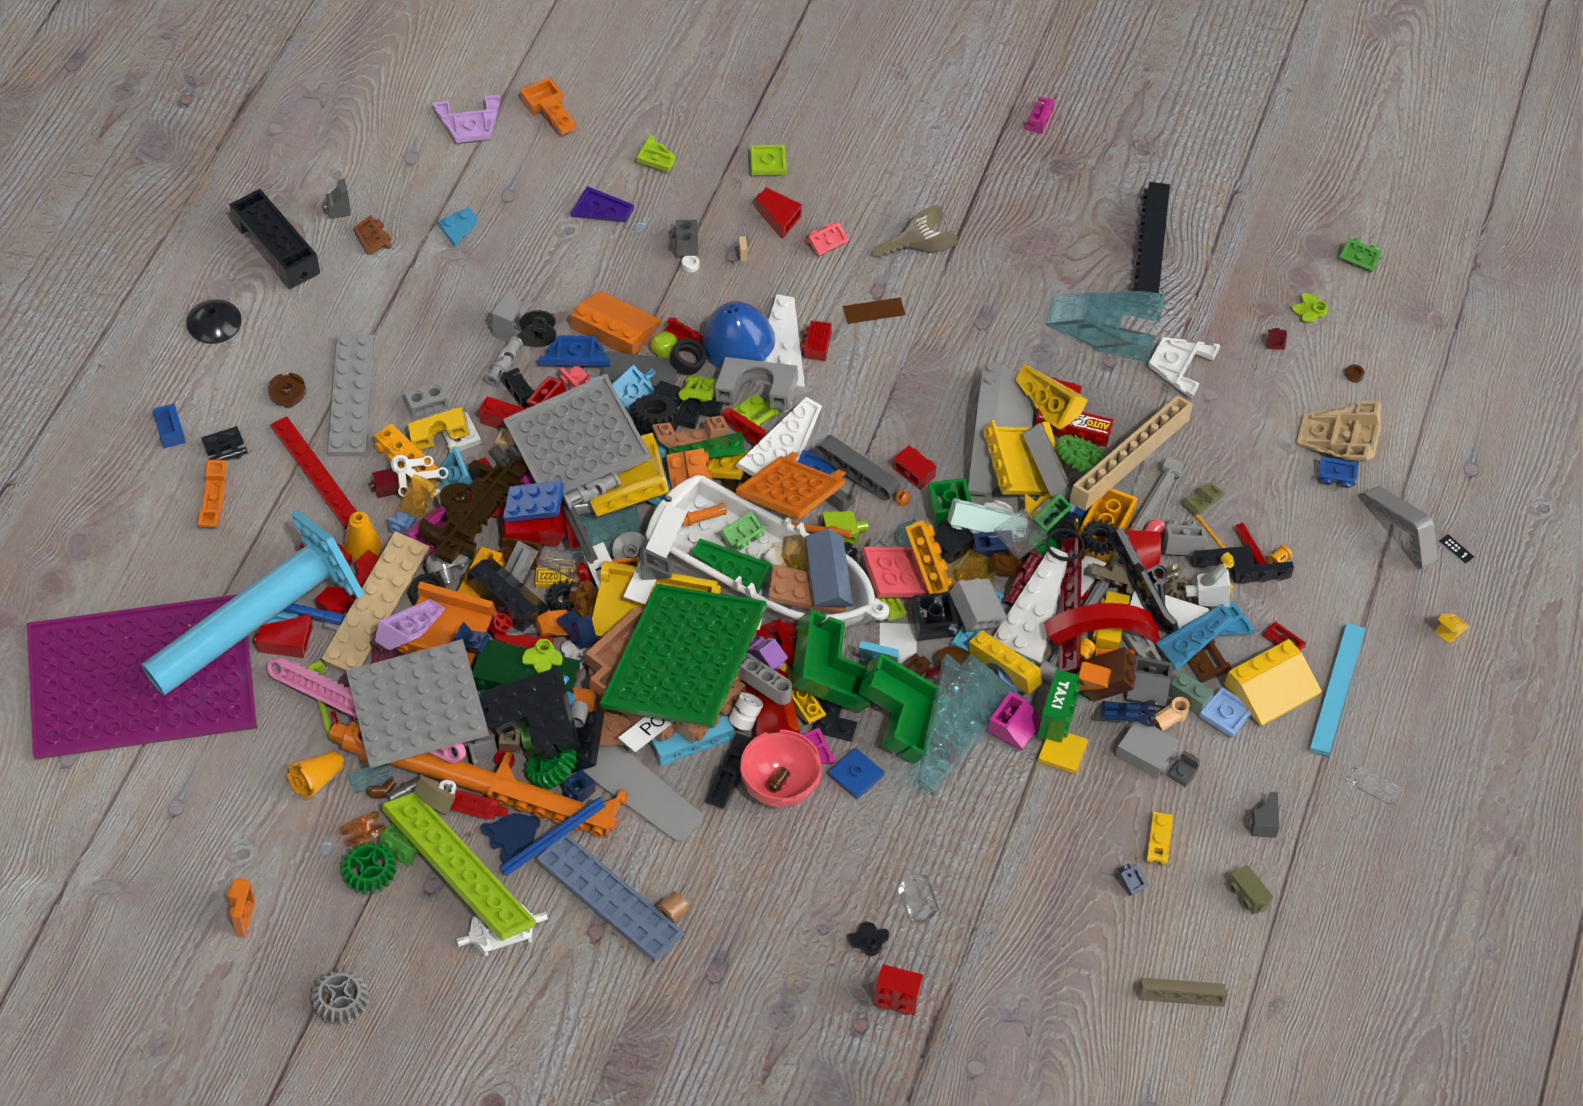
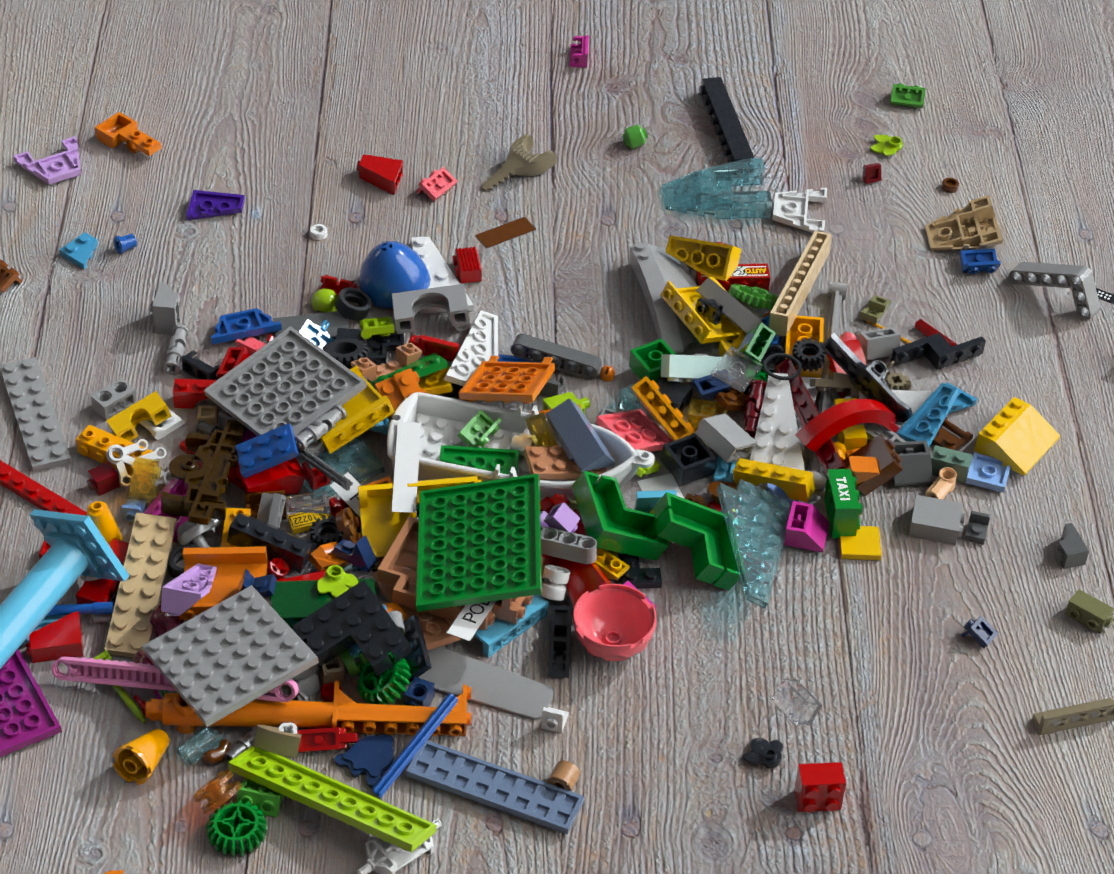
camera: 20 degrees left, 10 degrees down
(457, 469) = (174, 447): medium azure slope -> none
(501, 229) = (124, 243): none -> blue bush
(538, 328) = (199, 312): pearl dark grey piece -> none
(614, 322) = (269, 294): orange slope -> none
(627, 542) = (373, 469): light grey dish -> none
(654, 566) = (410, 475): dark grey slope -> none
(656, 155) = (246, 154): lime wing -> none
(685, 237) = (306, 210): dark grey brick -> none
(689, 849) = (554, 719): none -> white bracket
(704, 514) = (436, 424): orange pin -> none
(743, 250) = (363, 208): tan tile -> none
(755, 406) = (437, 330): lime plate -> none
(768, 160) = (352, 135): lime plate -> none
(778, 779) = (613, 633): reddish brown pin -> none
(856, 773) = (680, 612): blue plate -> none
(914, 467) = (607, 345): red brick -> none
(1025, 459) = (709, 309): none -> plate
(1049, 233) = (634, 136): none -> bright green head
(1128, 711) = (905, 492): dark blue flag -> none
(1160, 837) = (985, 591): yellow plate -> none
(1213, 587) = (929, 370): white torso -> none
(1275, 638) = (998, 400): red tile -> none
(1281, 555) = (965, 334): light orange bush -> none
(1337, 689) = (1072, 430): medium azure tile -> none

